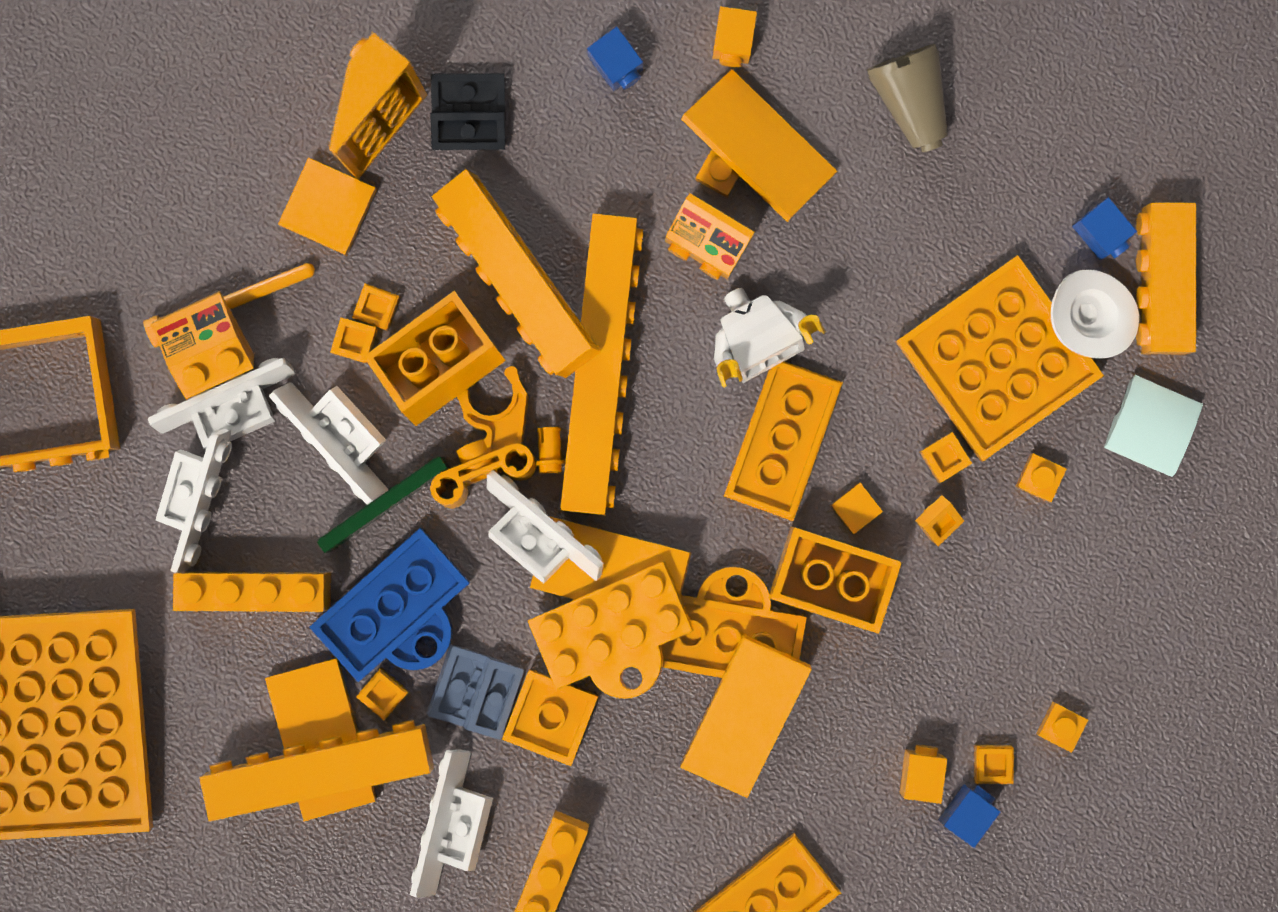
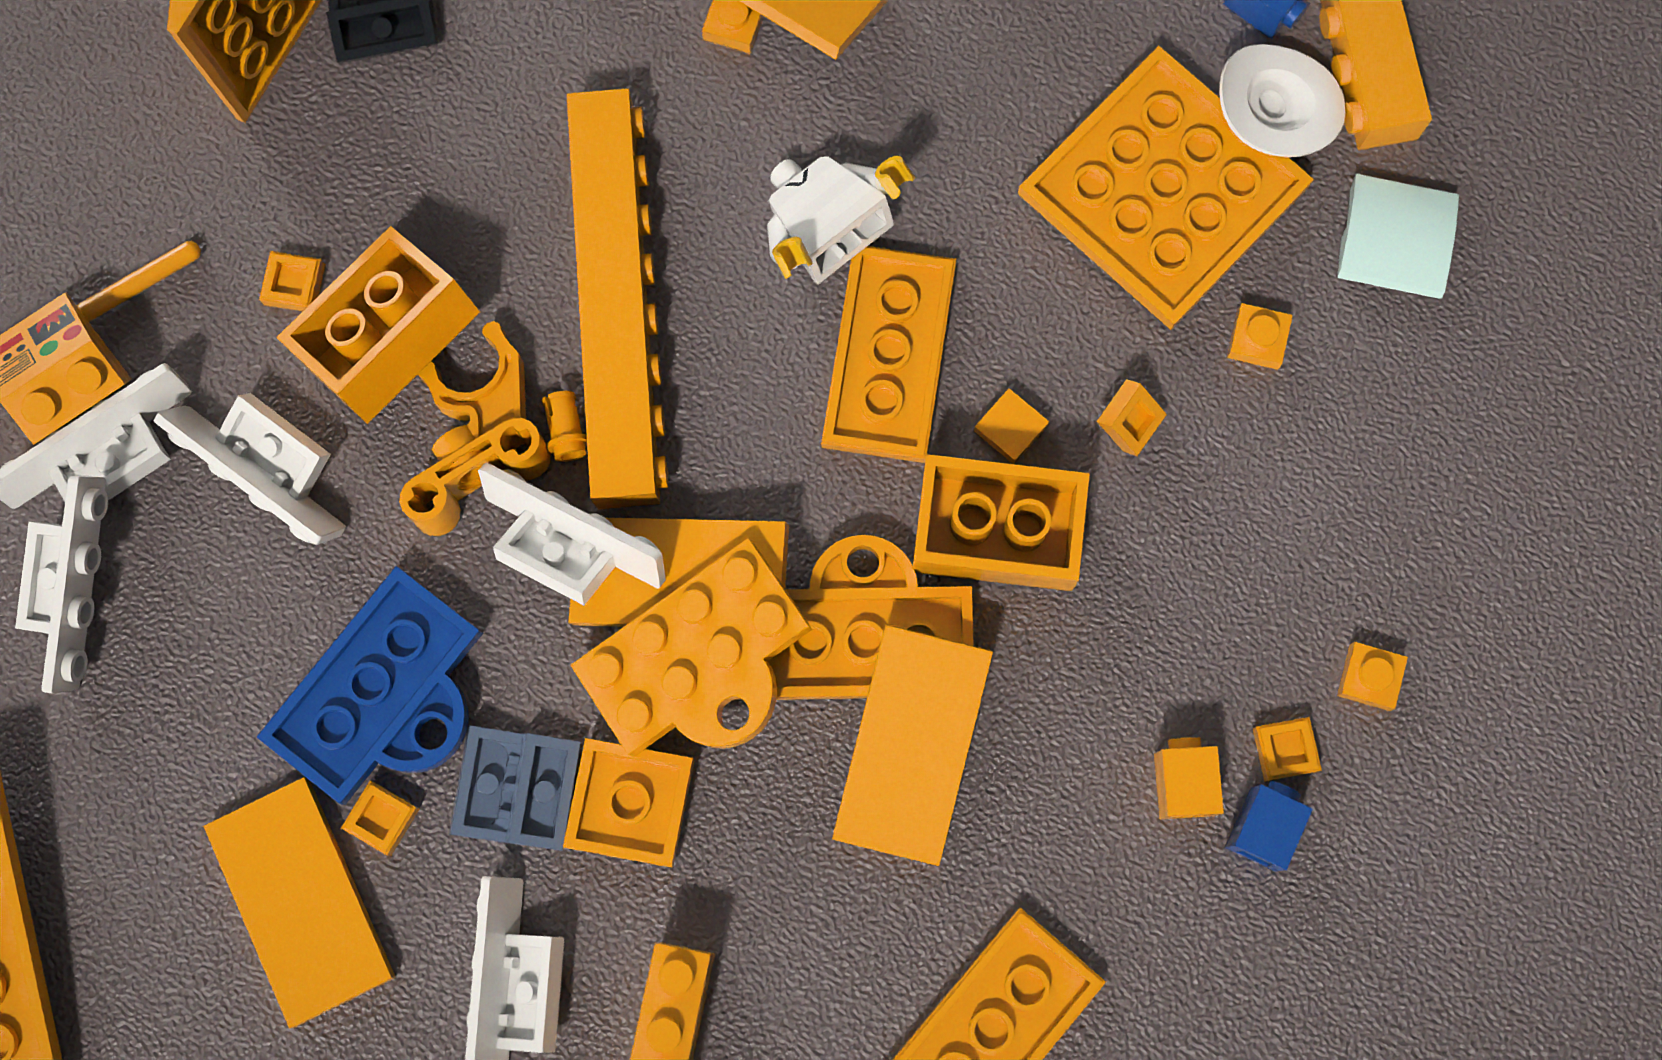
camera: 10 degrees left, 10 degrees down
(252, 591) = (165, 701): light orange brick -> none
(316, 771) = (292, 946): light orange brick -> none
(327, 206) = (205, 162): light orange tile -> none
(353, 340) = (260, 325): light orange plate -> none
(382, 505) = (333, 549): dark green tile -> none
(515, 274) = (475, 192): light orange brick -> none
(708, 237) = (732, 94): light orange slope -> none
(945, 457) = (1120, 331): light orange plate -> none

